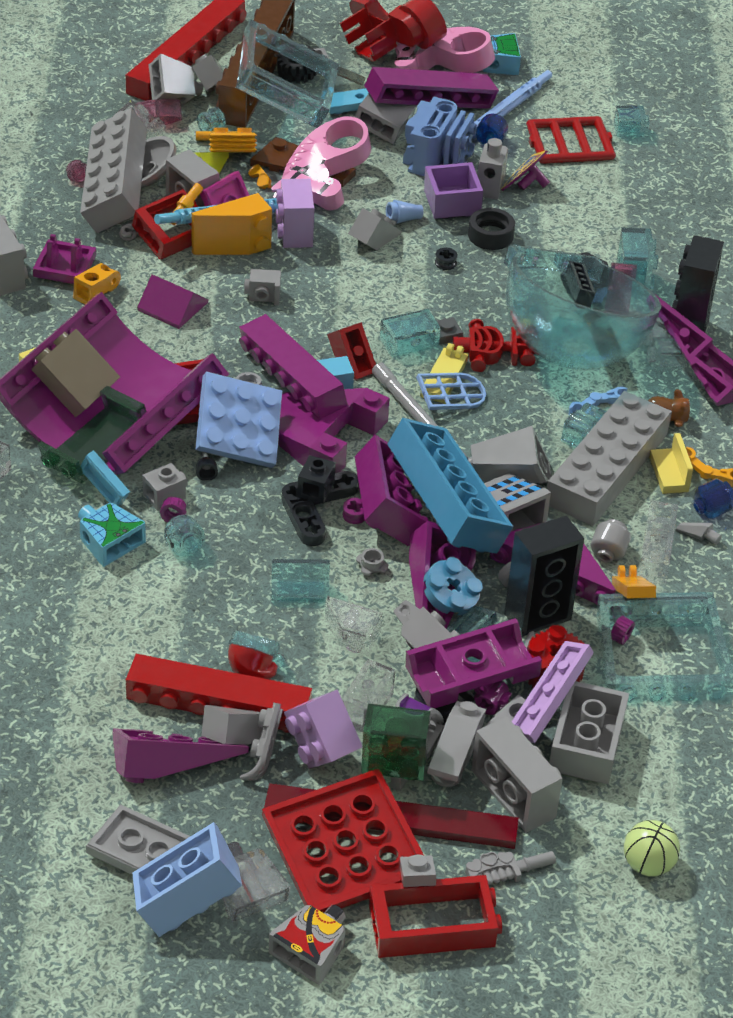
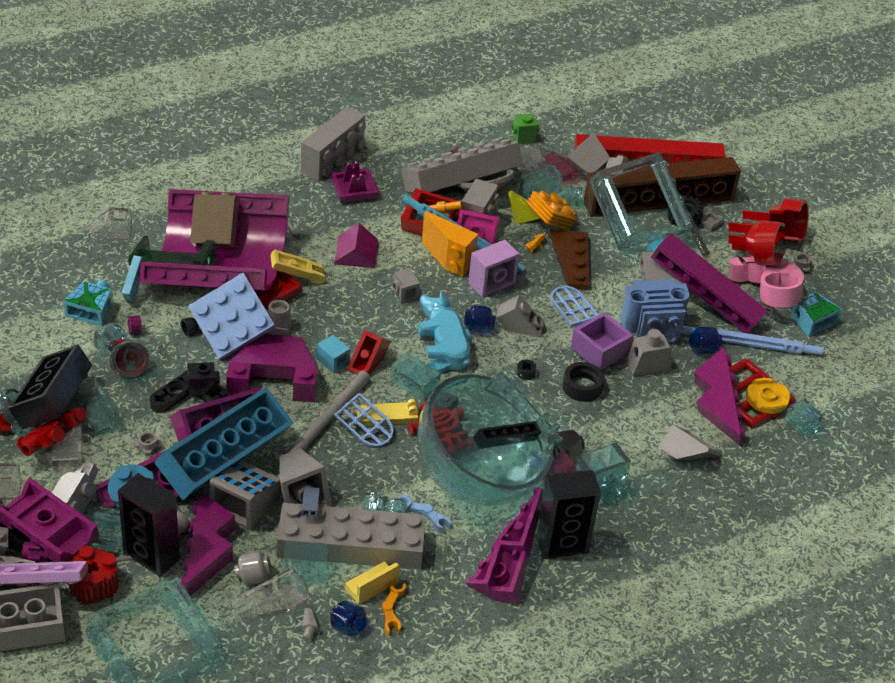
camera: 60 degrees right, 0 degrees up
(77, 106) = (525, 128): none -> bright green brick
(93, 281) = (343, 205): light orange leg -> none
(163, 484) = (153, 311): light grey brick -> none
(181, 348) = (297, 266): none -> light yellow hinge
(182, 128) = (545, 178): none -> clear light blue brick
(237, 527) = (128, 357): none -> clear light blue piece
(256, 596) = (50, 387): none -> black brick
(292, 366) = (314, 325): magenta brick -> none
(319, 160) = (568, 258): bright pink animal -> none
(319, 625) = (50, 432): none -> red piece
(356, 256) = (479, 319): none -> clear blue head
(360, 197) = (570, 311): none -> light blue window
(363, 283) = (449, 335): none -> medium azure animal
(403, 211) = (557, 325): light blue cone -> none
(534, 173) = (673, 382): magenta shield -> none
(567, 456) = (310, 502): none -> sand blue piece
(583, 156) = (720, 398): none -> magenta slope
(589, 128) = (767, 396): none -> yellow tile
(622, 630) = (156, 607): magenta axle -> none
(623, 202) = (686, 446): none -> light grey slope
(627, 500) = (307, 560): none -> clear light blue piece
(633, 585) = (199, 593): light orange hinge -> none
(678, 405) = (440, 556): dark orange animal -> none

